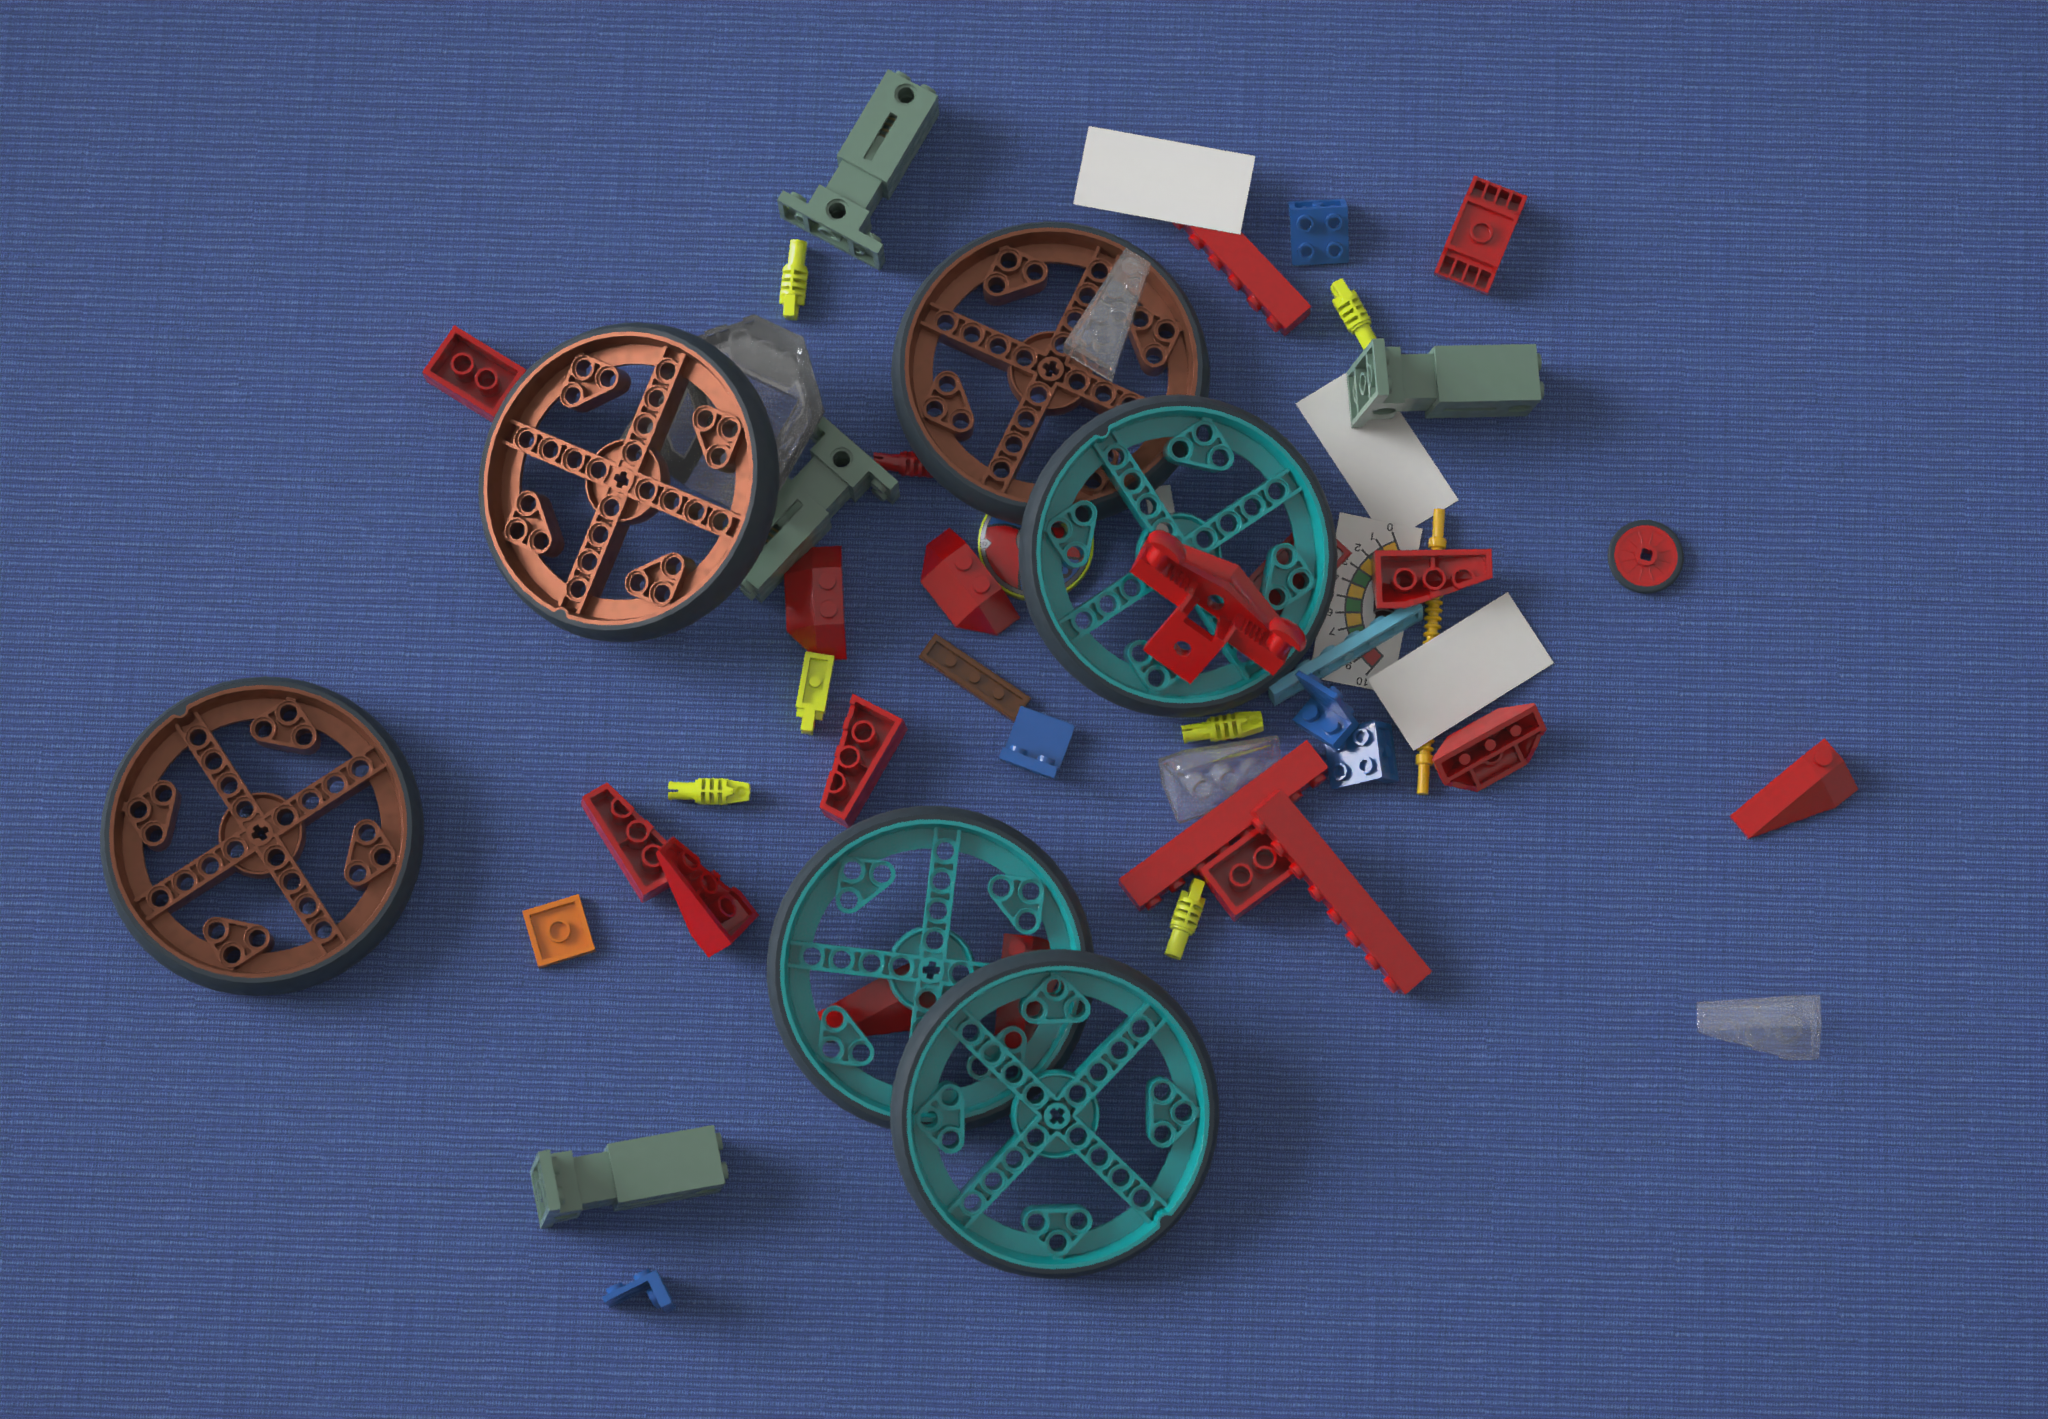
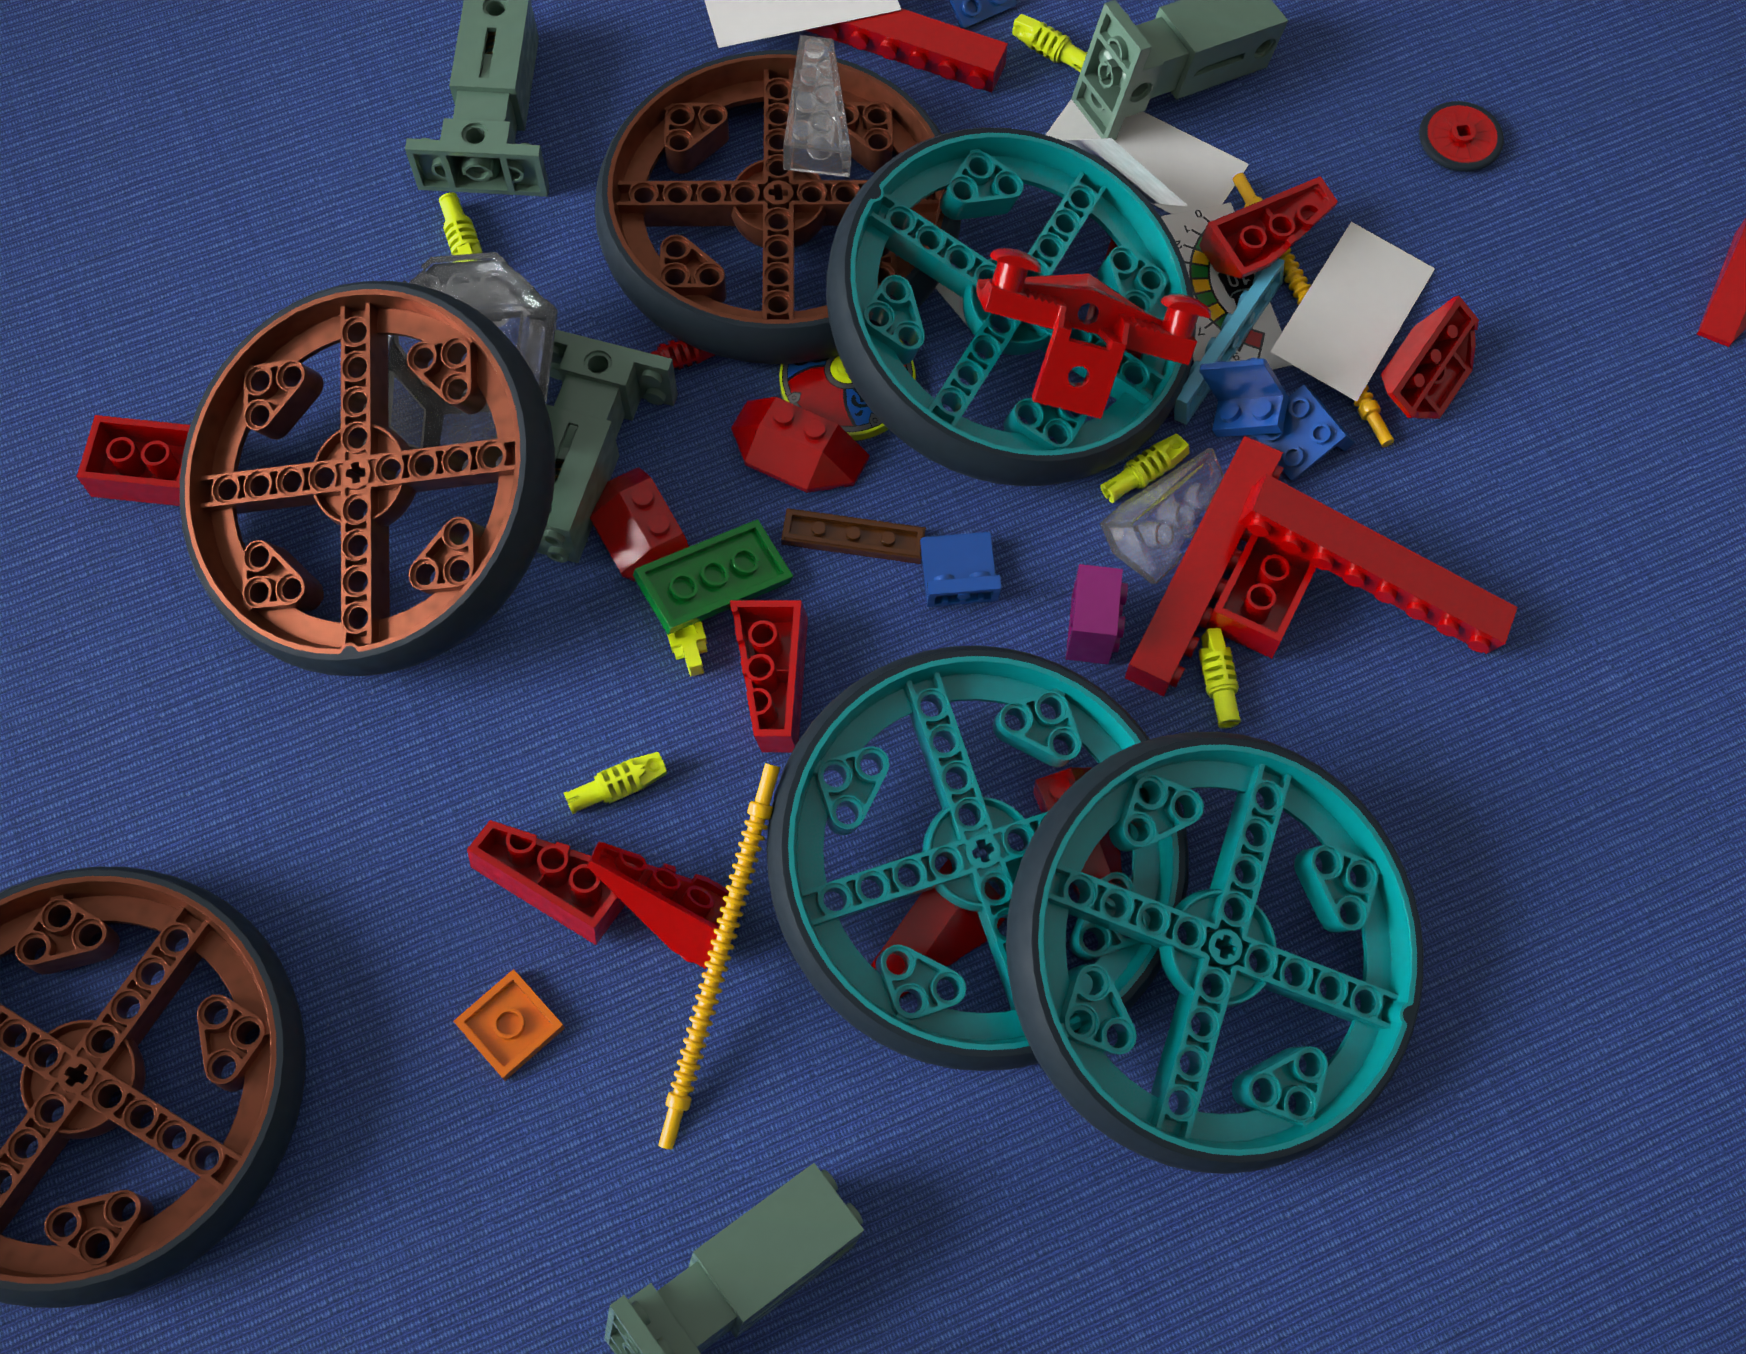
camera: 30 degrees left, 10 degrees down
(789, 871) = (678, 1099): none -> yellow hose
(851, 666) = (710, 574): none -> green plate
(1114, 828) = (1096, 614): none -> magenta brick
(1315, 488) = (1119, 159): none -> white sticker

